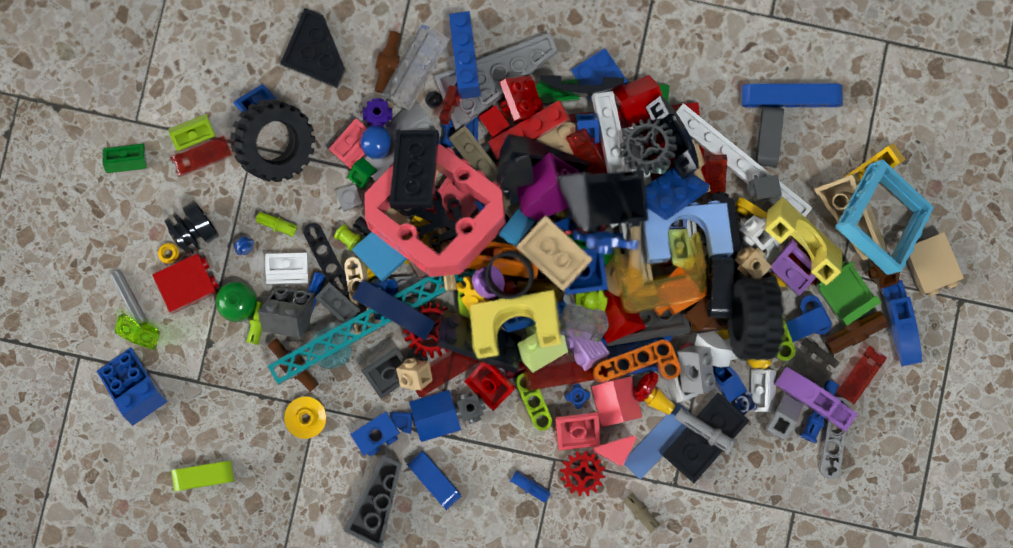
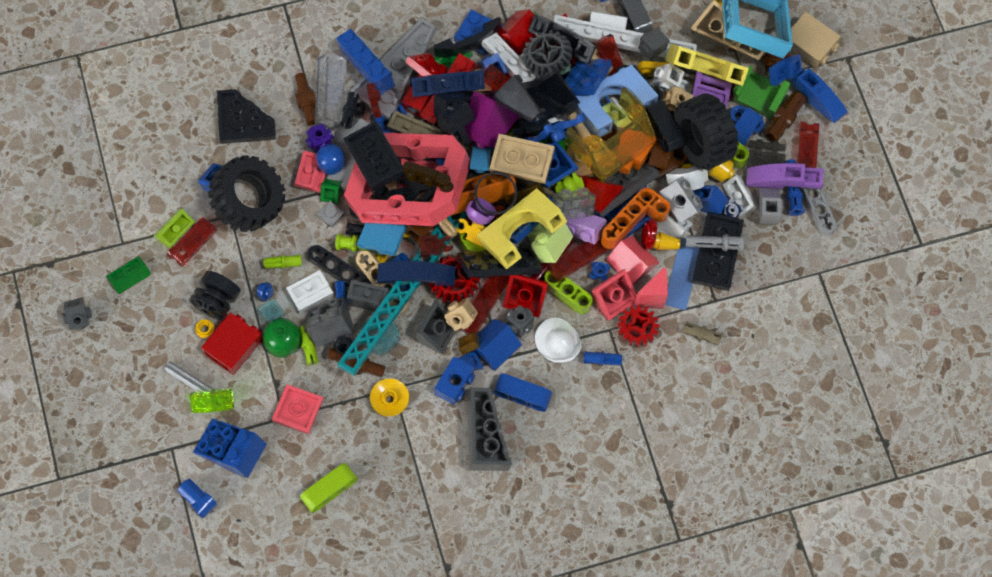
camera: 30 degrees left, 15 degrees down
(54, 176) = (76, 314): none -> dark grey brick
(78, 426) = (200, 502): none -> blue piece
(213, 382) = (297, 409): none -> coral plate
(239, 270) = (271, 311): none -> clear light blue plate
(286, 344) = (342, 344): none -> black plate
(409, 404) = (468, 343): none -> pearl gold tile
(422, 99) = (349, 110): none -> black pin
(422, 291) = (432, 246): none -> clear red plate
(448, 227) = (427, 176): none -> dark brown hinge
(498, 445) = (557, 340): none -> white hat
(527, 127) = (447, 82): none -> dark blue slope
(736, 135) = (609, 20): none -> white slope
(885, 285) = (785, 69): none -> blue slope

